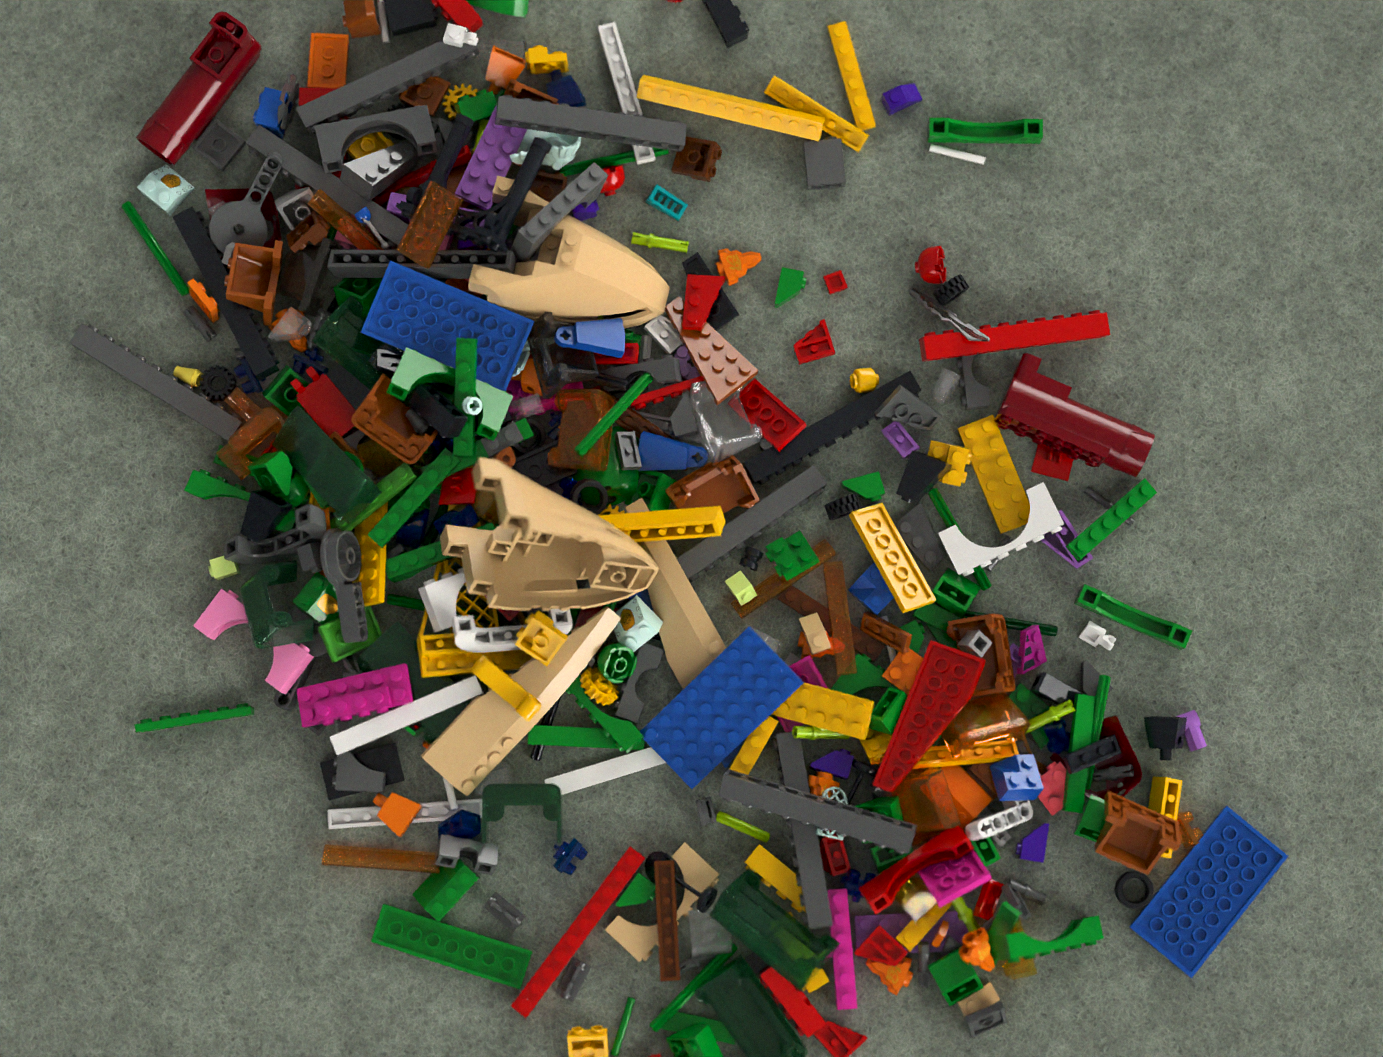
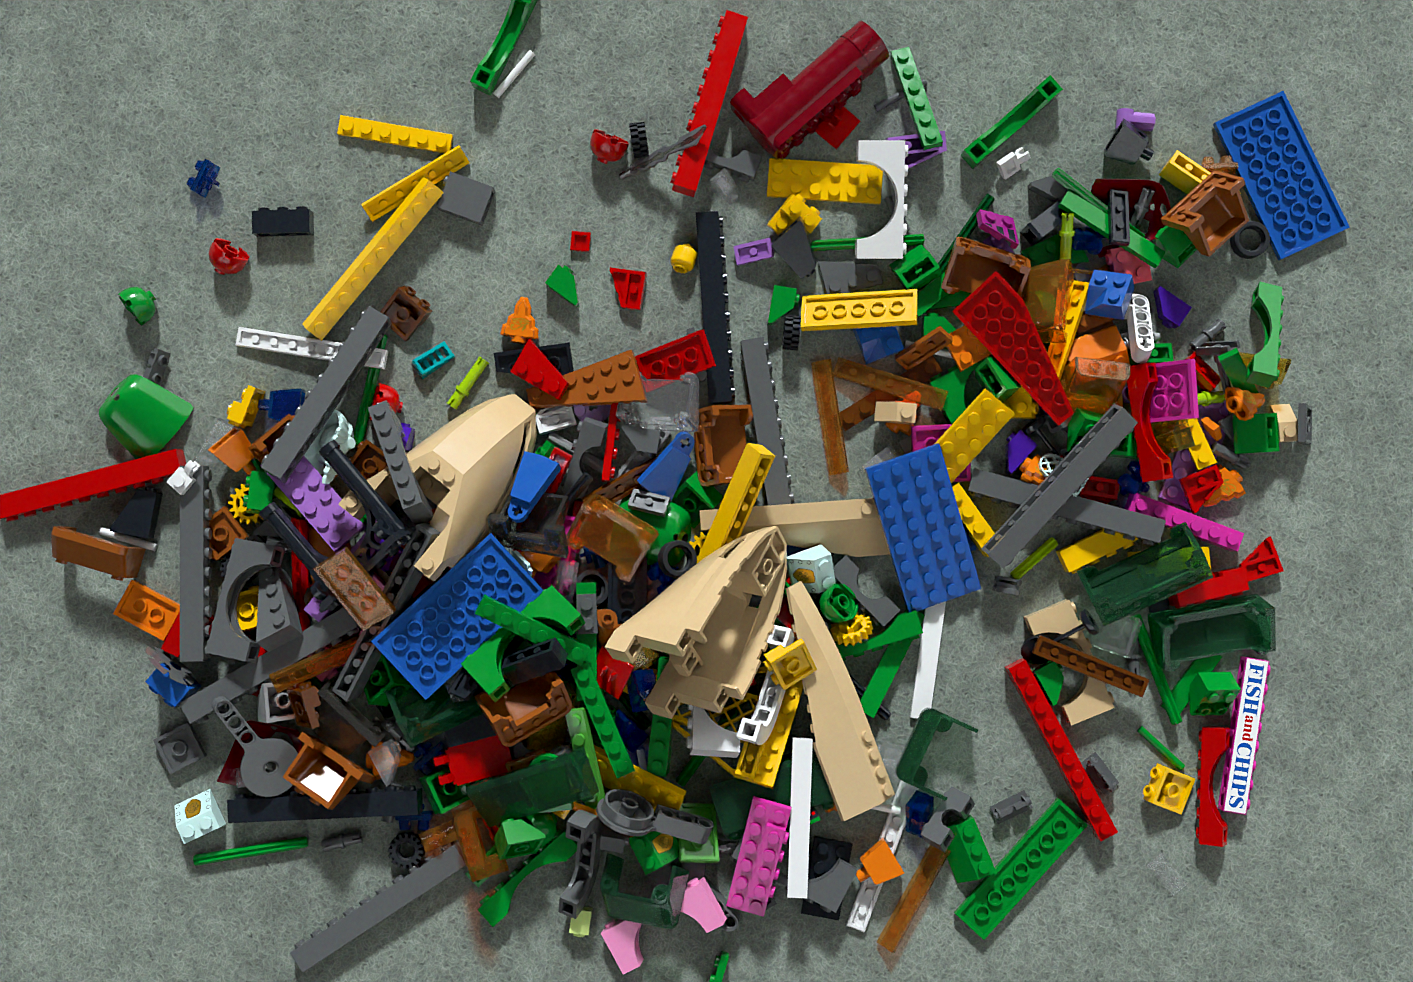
camera: 65 degrees left, 5 degrees up
(188, 375) = (387, 873): light yellow cone -> none
(203, 89) = (119, 739): dark red piece -> none
(206, 303) = (315, 830): orange plate -> none
(228, 253) = (288, 786): light grey tile -> none
(263, 514) = (551, 864): black slope -> none
(364, 216) = (316, 645): hinge -> none
(418, 422) = (535, 684): dark grey cone -> none
(470, 400) = (539, 628): light aqua bush -> none
(507, 688) = (838, 706): yellow beam -> none
(566, 853) = (986, 727): clear blue hips -> none
(614, 413) = (611, 500): green axle -> none
(741, 588) = (821, 459): yellowish green brick -> none
(751, 558) = (798, 437): black wheel -> none
(791, 555) = (813, 399): green plate -> none
(814, 733) = (982, 458): lime pin -> none
(900, 98) = (437, 100): dark purple slope -> none
(908, 408) = (730, 230): dark grey wing -> none
(974, 643) = (973, 273): light grey brick -> none

